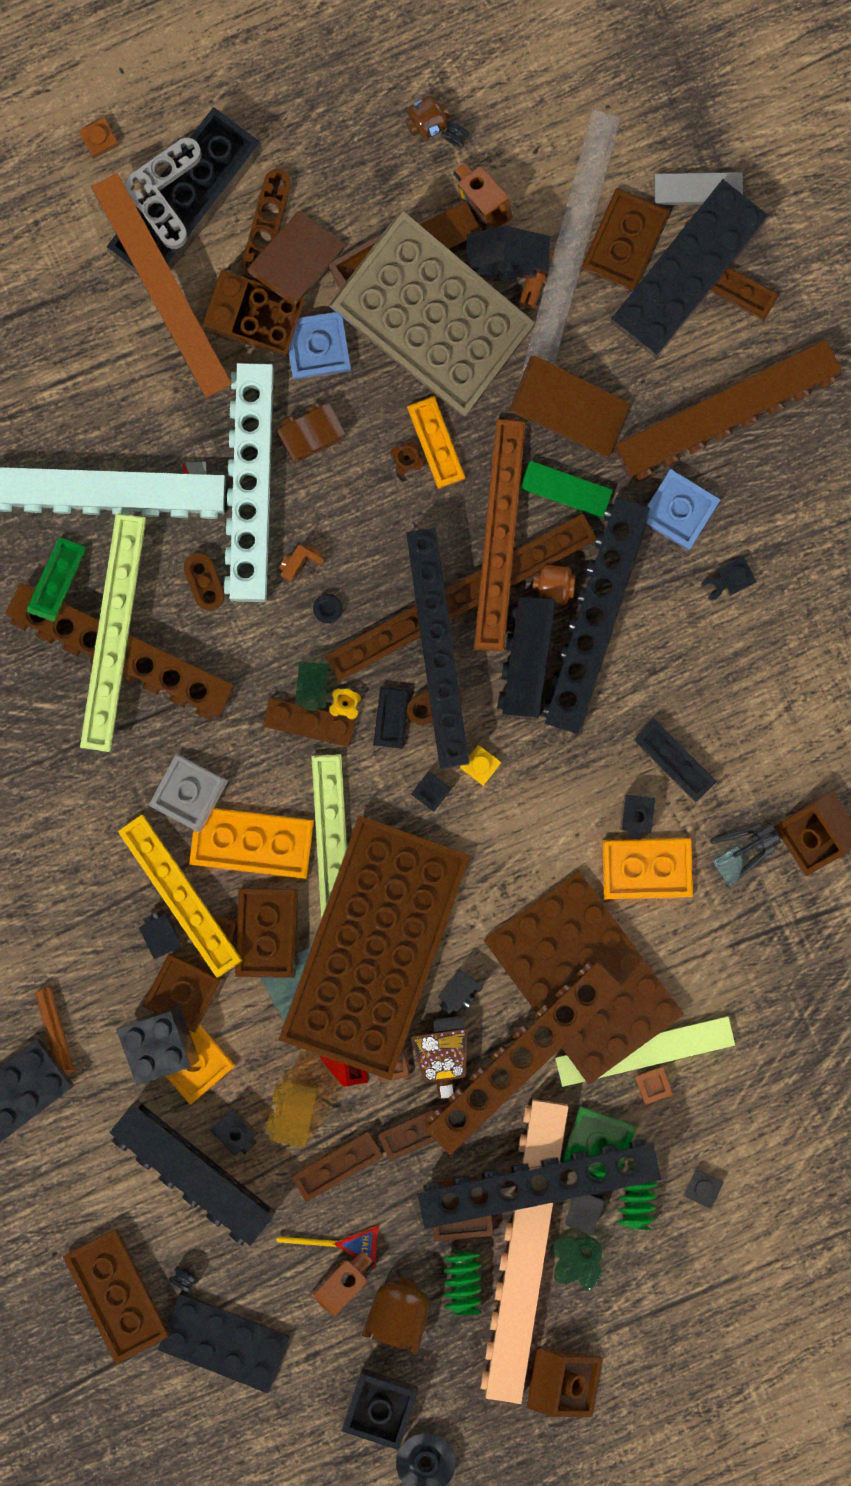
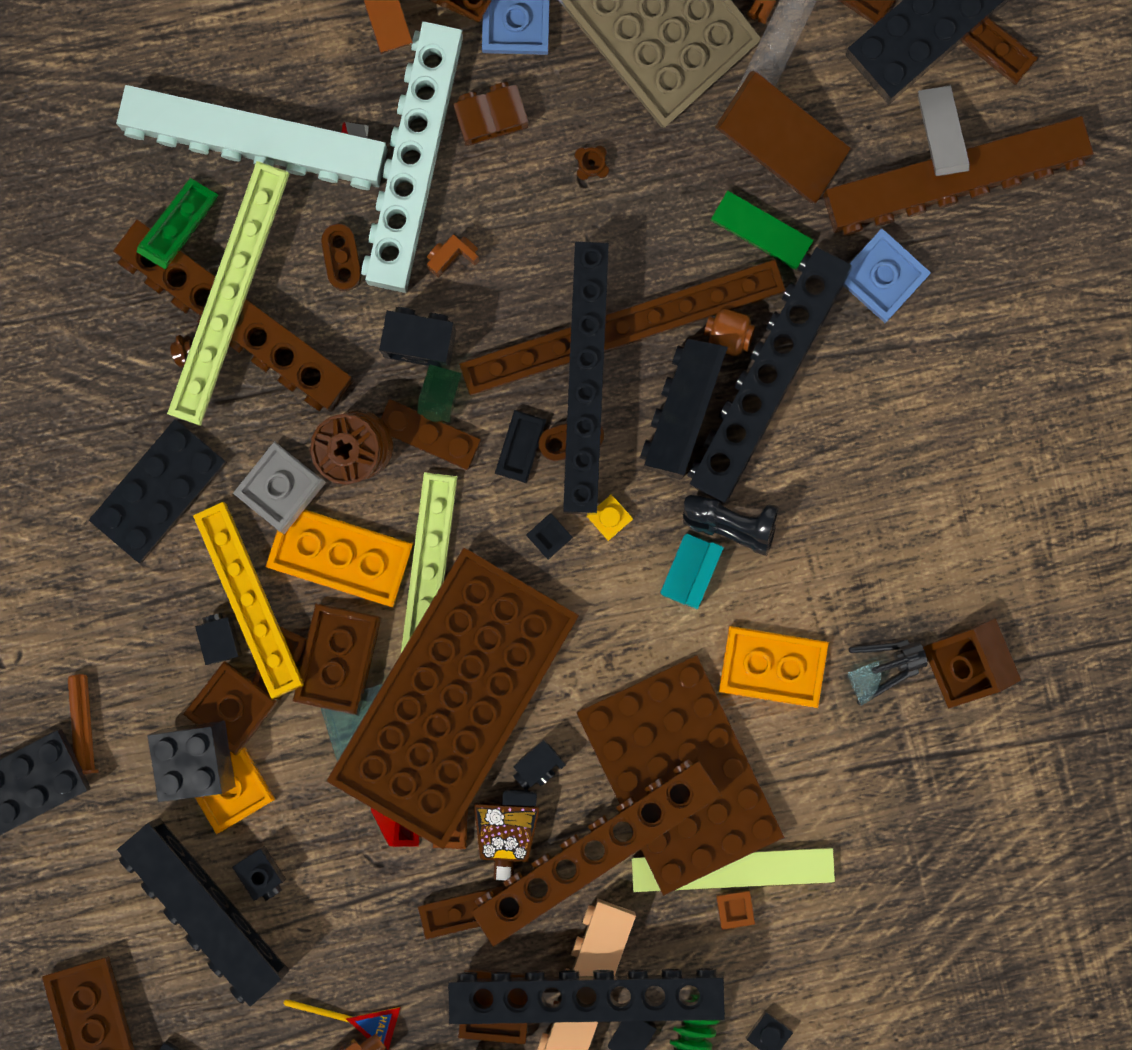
camera: 10 degrees right, 0 degrees up
(80, 688) = (180, 349): none -> reddish brown plate
(82, 816) = (157, 491): none -> black plate
(183, 1279) = (172, 1027): black bush -> none
(259, 736) = (370, 444): none -> reddish brown wheel
(285, 640) = (418, 338): none -> black brick
(293, 1113) = (328, 865): clear yellow brick -> none
(327, 609) = (472, 313): black tile -> none
(337, 1166) = (366, 933): reddish brown plate -> none
(348, 696) = (474, 412): yellow plate -> none
(436, 442) = (627, 151): light orange tile -> none
(500, 535) = (678, 266): dark orange tile -> none
(560, 798) = (691, 571): none -> teal panel
(569, 749) = (711, 517): none -> black piece
(596, 1130) = (660, 949): green tile -> none
(637, 816) = (773, 606): black brick -> none
(674, 760) = (826, 552): black plate -> none
(708, 374) = (943, 130): none -> light grey tile
(733, 578) = (927, 361): black plate -> none

